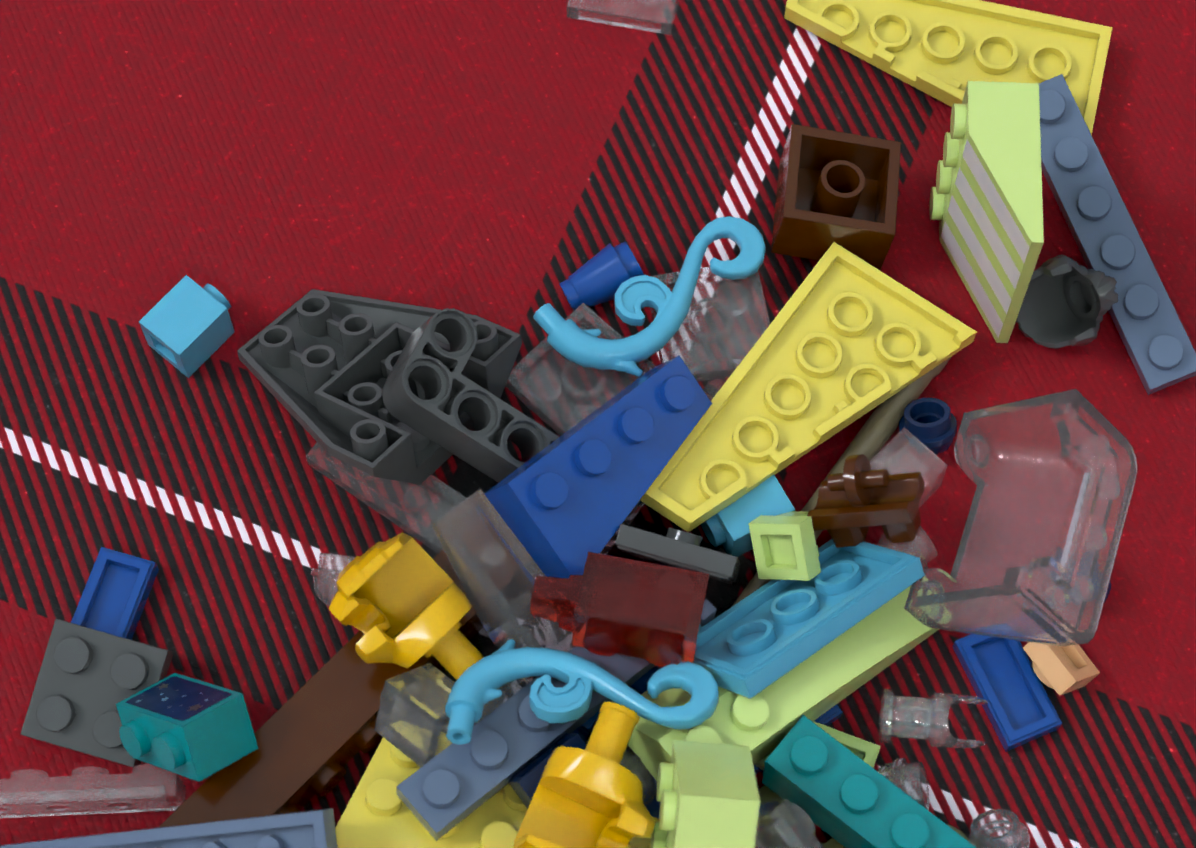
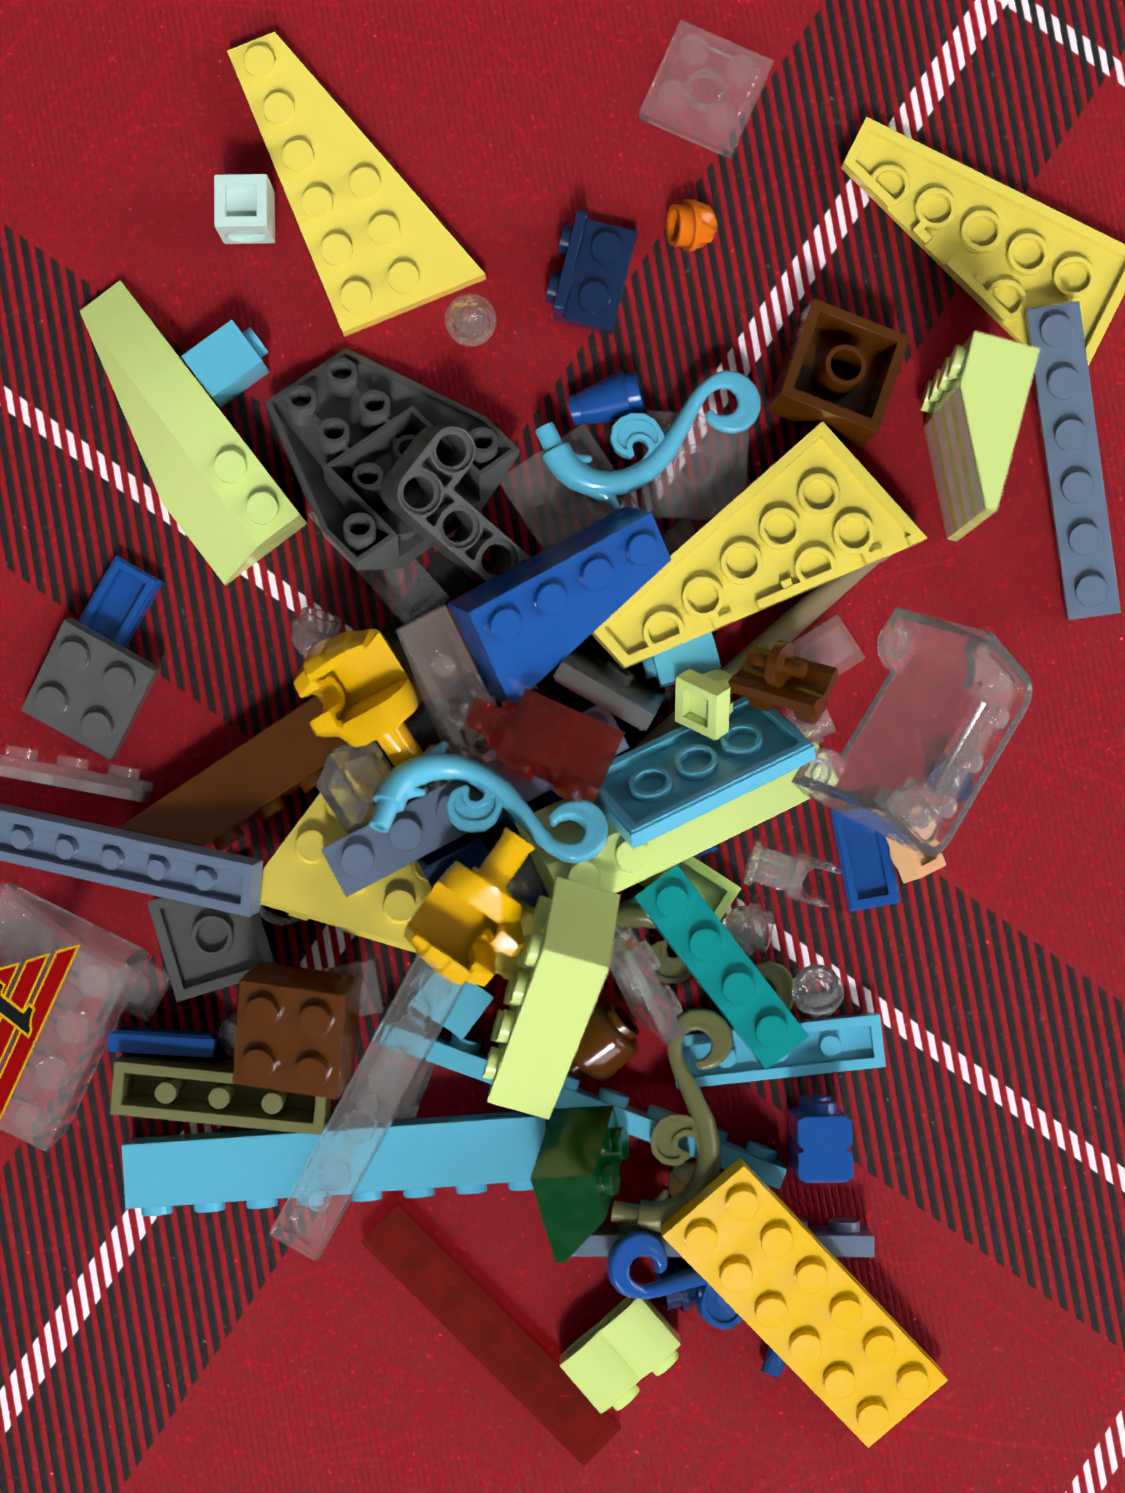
camera: 15 degrees right, 20 degrees up
(166, 417) = (188, 445): none -> yellowish green wedge
(179, 170) = (244, 208): none -> light aqua brick
(186, 726) = (157, 747): teal brick -> none
(296, 161) = (359, 218): none -> light yellow wing
(439, 233) = (470, 320): none -> clear plate
(557, 165) = (592, 274): none -> dark blue bracket
(645, 96) = (690, 225): none -> orange plate
(930, 423) = (861, 610): dark blue plate -> none
(1065, 303) = (1019, 526): dark grey hair -> none

